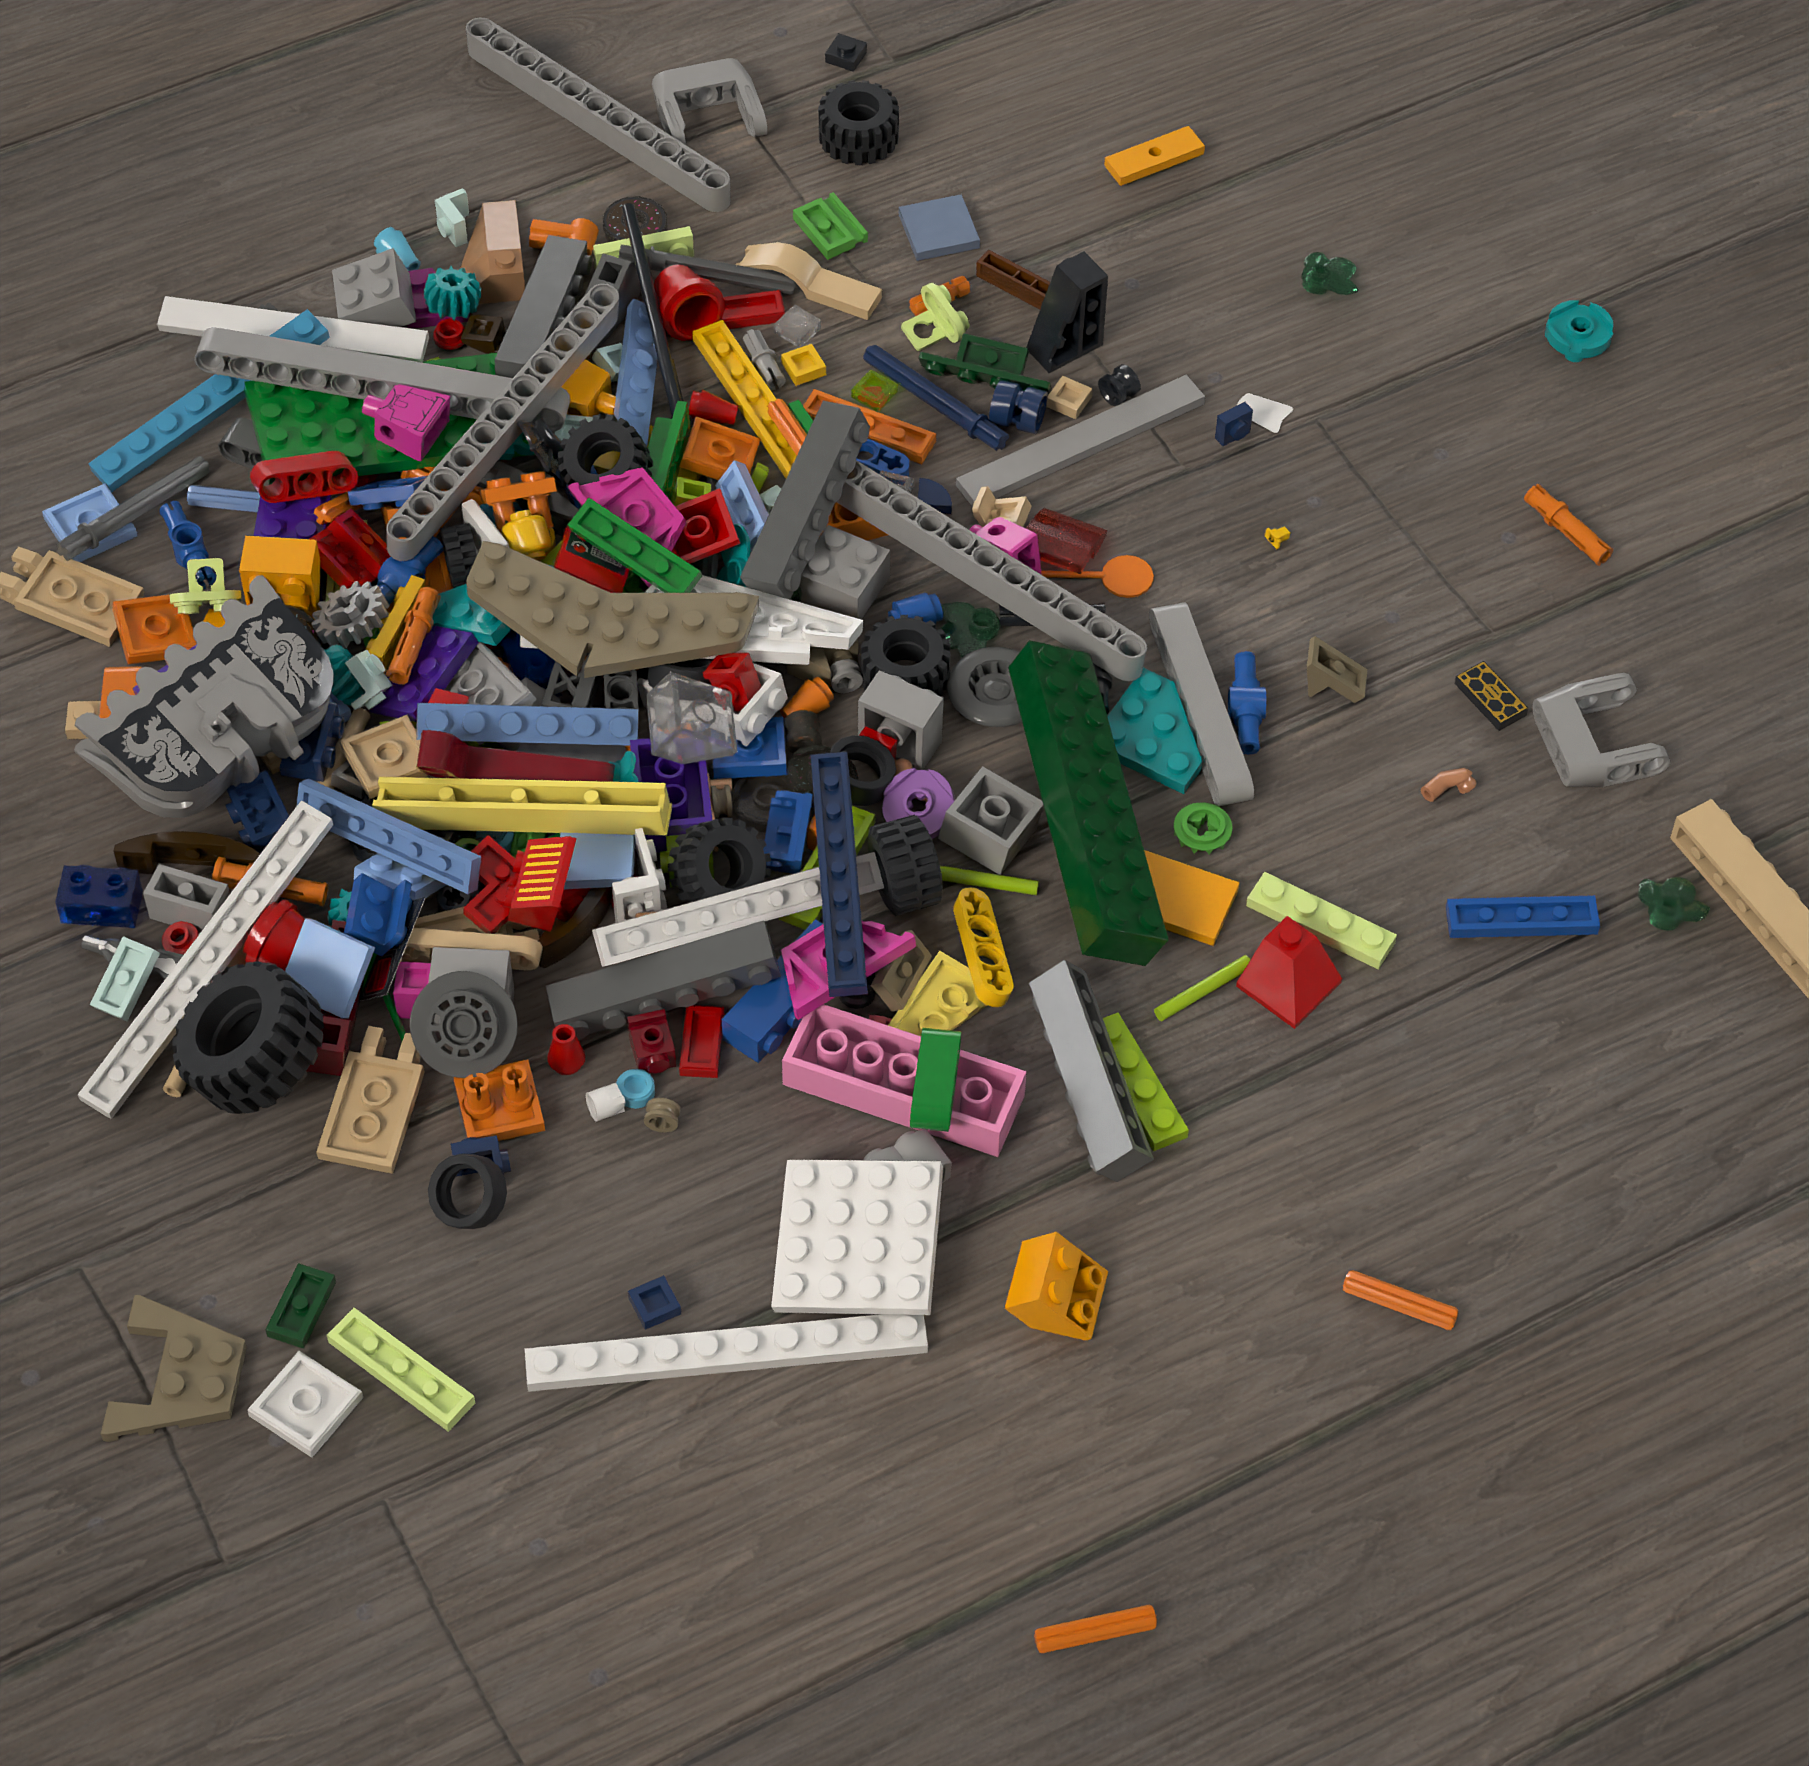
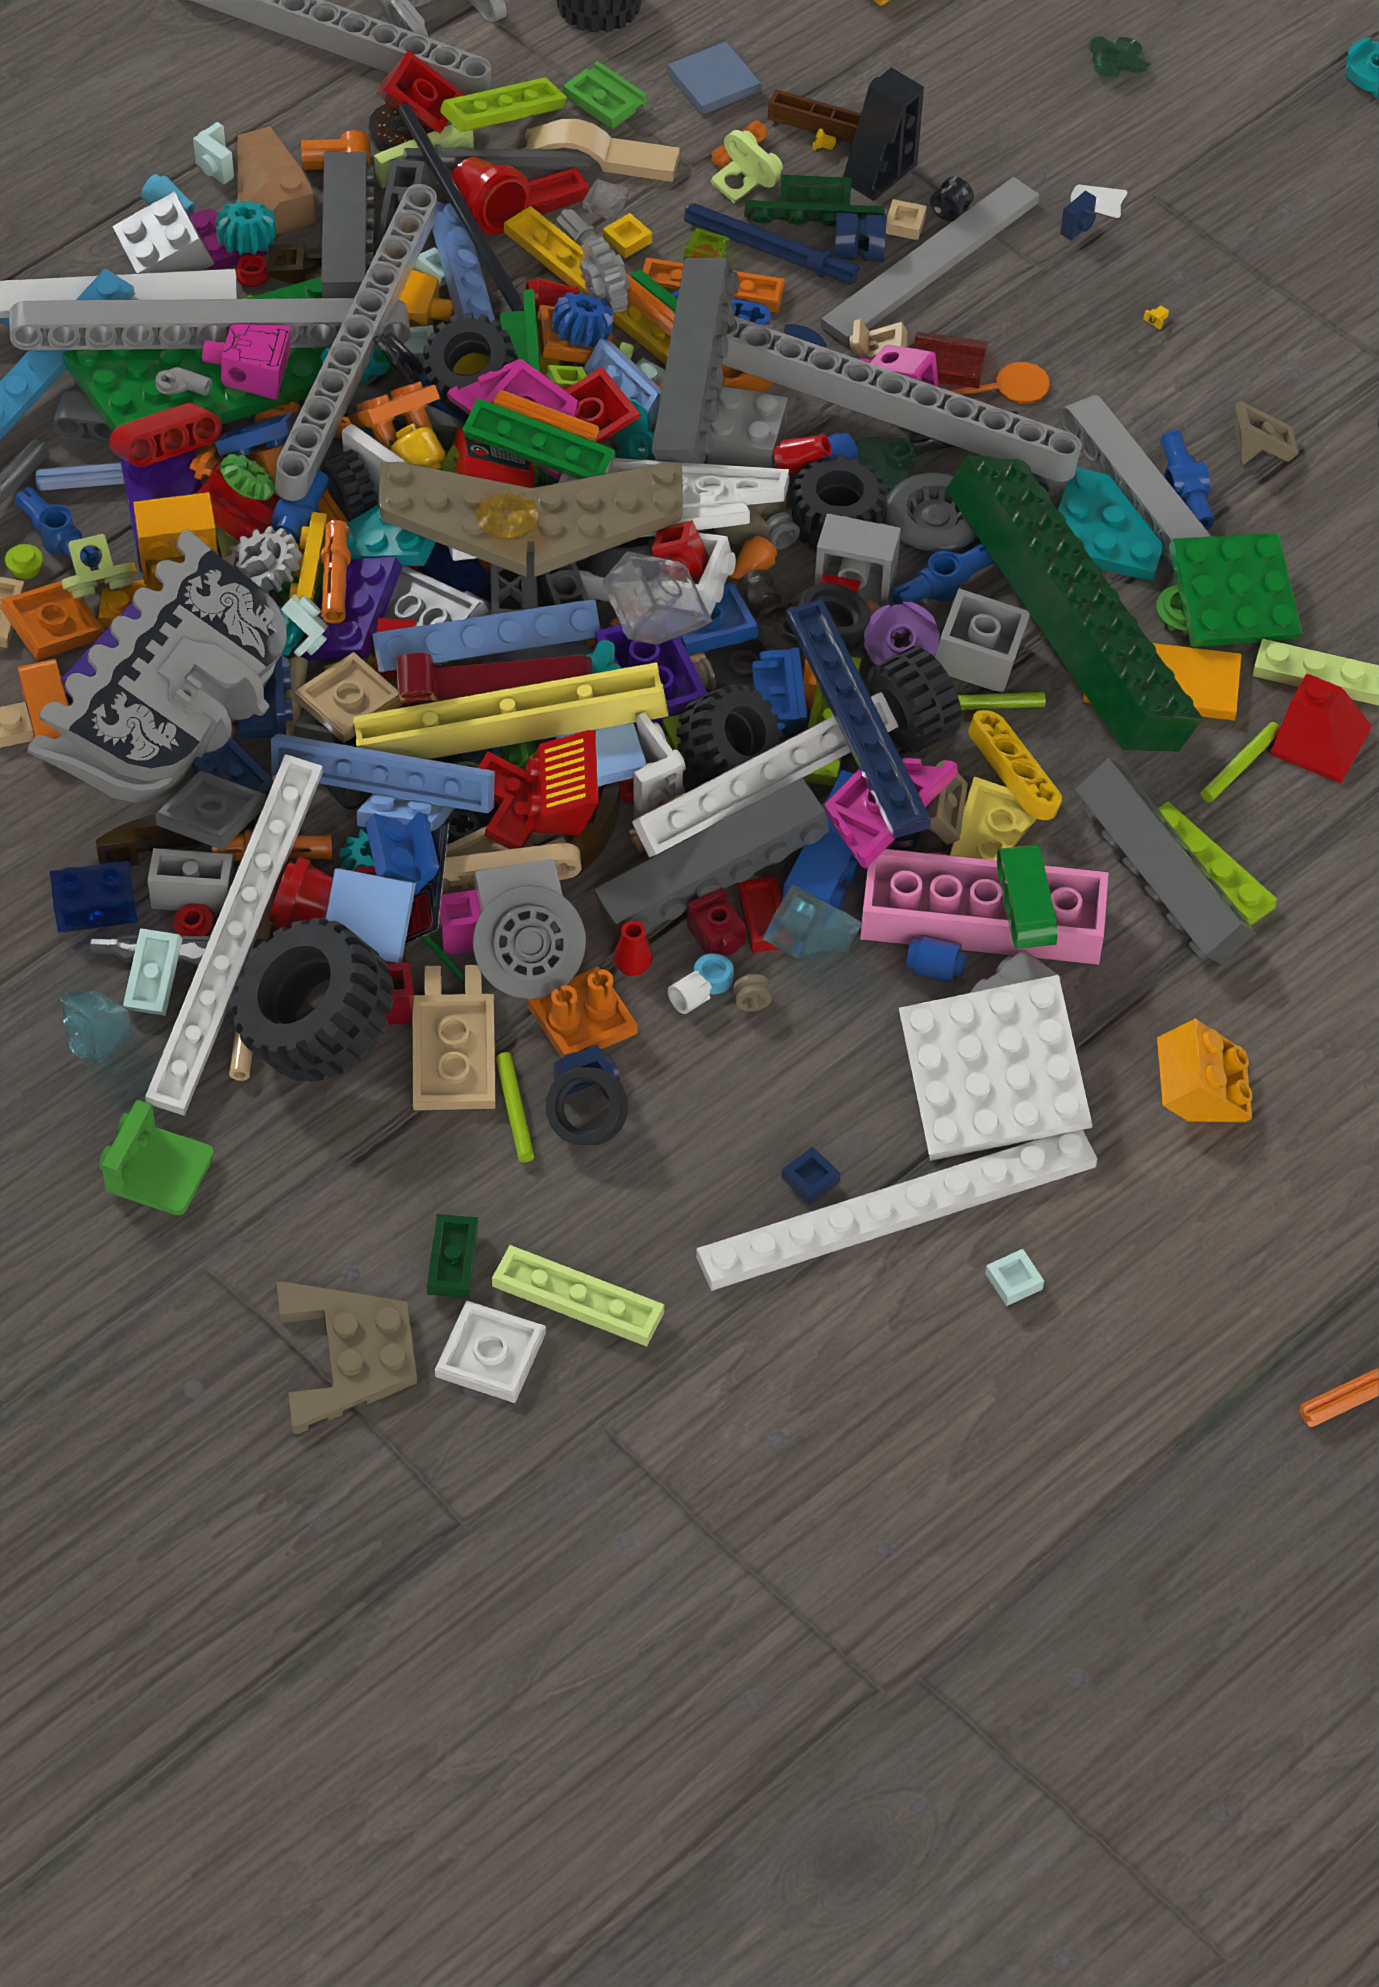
camera: 15 degrees left, 0 degrees up
(54, 1016) = (94, 1024): none -> clear light blue slope
(63, 1157) = (153, 1163): none -> bright green bracket
(150, 568) = (24, 561): none -> lime plate
(222, 838) = (211, 810): none -> dark grey plate
(334, 428) = (181, 380): none -> light grey arm
(358, 526) = (247, 477): none -> bright green gear
(408, 1177) = (515, 1107): none -> lime bar
(581, 623) = (519, 522): none -> clear yellow gear
(649, 527) = (547, 415): none -> orange axle
(655, 194) = (421, 87): none -> red slope
(724, 439) = (582, 319): none -> blue gear
(728, 218) = (503, 104): none -> lime plate
(733, 1063) = (810, 926): none -> clear light blue slope
(757, 400) = (604, 274): none -> light grey gear
(809, 1443) = (1014, 1277): none -> light aqua plate
(843, 1119) = (936, 959): none -> blue brick
(878, 605) = (799, 452): none -> red cone
(981, 748) = (942, 576): none -> blue pin
(1020, 306) = (823, 140): none -> yellow piece
(1252, 819) = (1235, 589): none -> green plate

